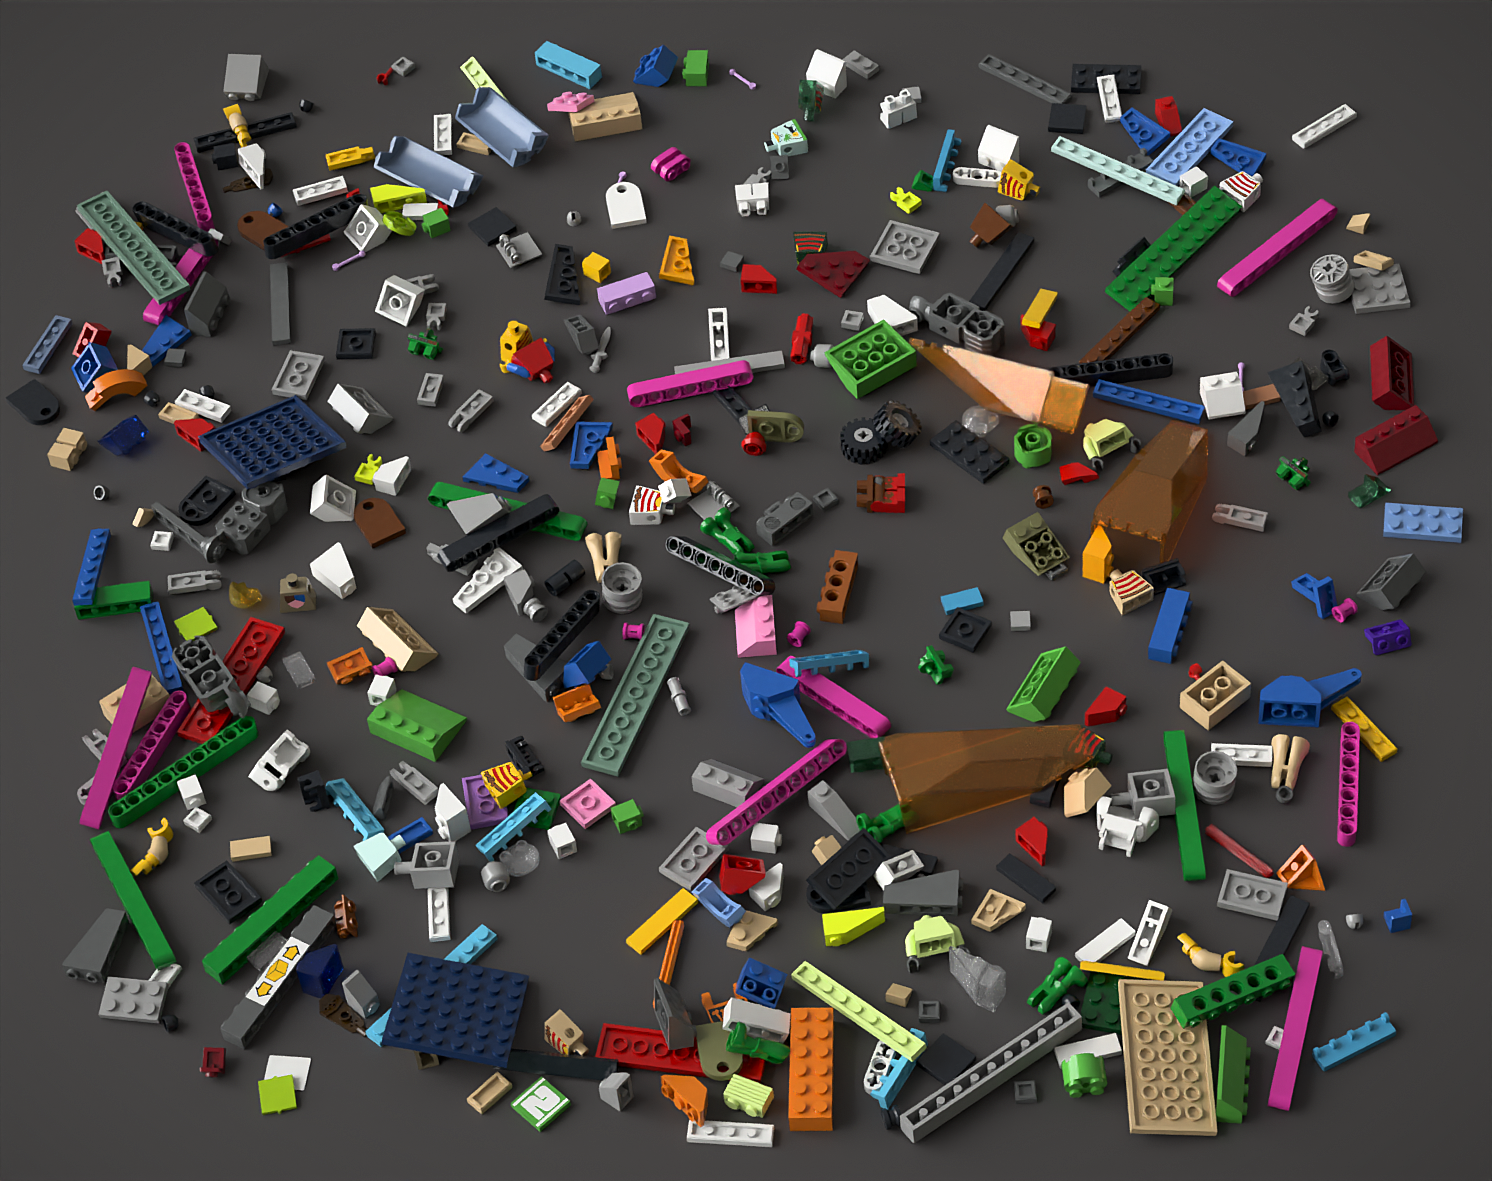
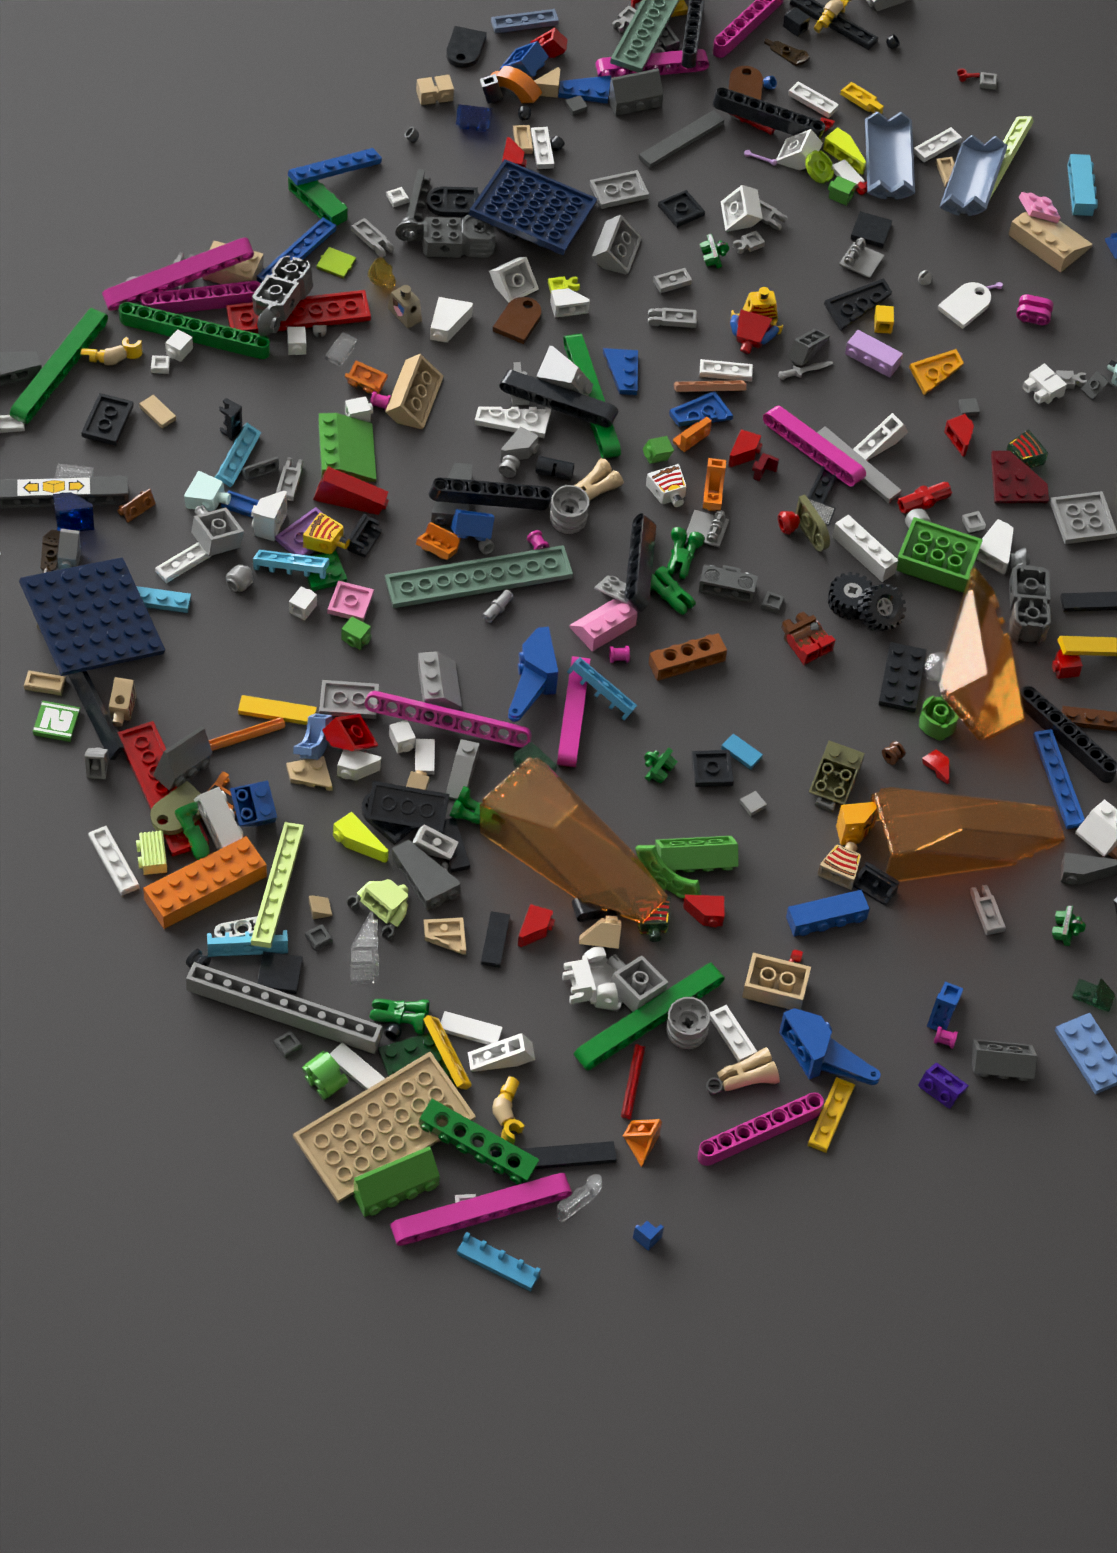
camera: 45 degrees right, 5 degrees up
(106, 406) = (491, 89): none -> black brick
(143, 517) = (408, 172): tan tile -> none
(220, 236) = (713, 63): light grey tile -> none
(253, 162) = (804, 43): white slope -> none
(271, 917) = (104, 458): green brick -> none
(284, 757) = (246, 381): white piece -> none
(469, 742) = (350, 492): none -> red slope
(520, 858) = (267, 585): clear dish -> none
(674, 490) = (691, 491): white brick -> none
(687, 1095) = (123, 813): orange slope -> none
(797, 833) = (425, 755): none -> white tile
(825, 404) = (865, 548): none -> white brick
(1038, 934) = (444, 975): white brick -> none
(1066, 715) = (663, 875): none -> bright green tile
(1106, 437) = (990, 765): yellowish green torso -> none
(1252, 894) = (594, 1112): light grey plate -> none
(1355, 919) = (623, 1201): light grey hinge -> none

